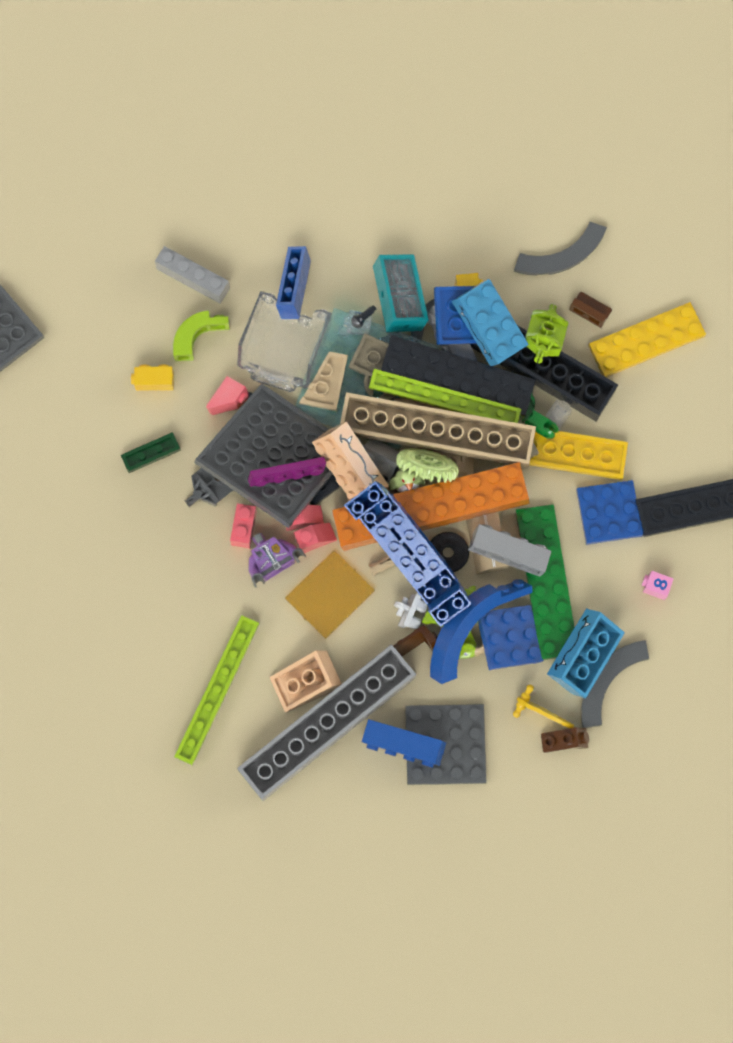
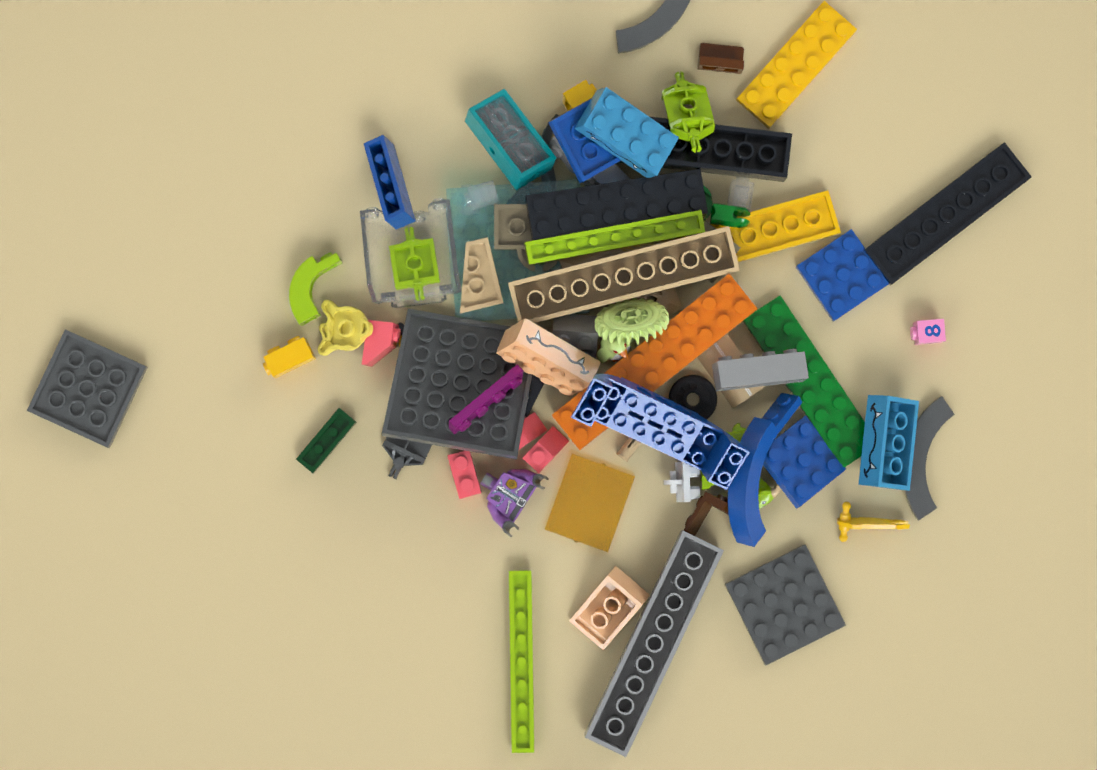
camera: 25 degrees left, 10 degrees up
(192, 274) = (273, 222): light grey brick -> none
(205, 376) = (344, 329): none -> light yellow tile
(282, 351) = (414, 263): none -> lime plate
(358, 320) = (483, 196): black piece -> none
(403, 742) = (743, 626): blue brick -> none
(565, 739) = (907, 542): reddish brown bracket -> none

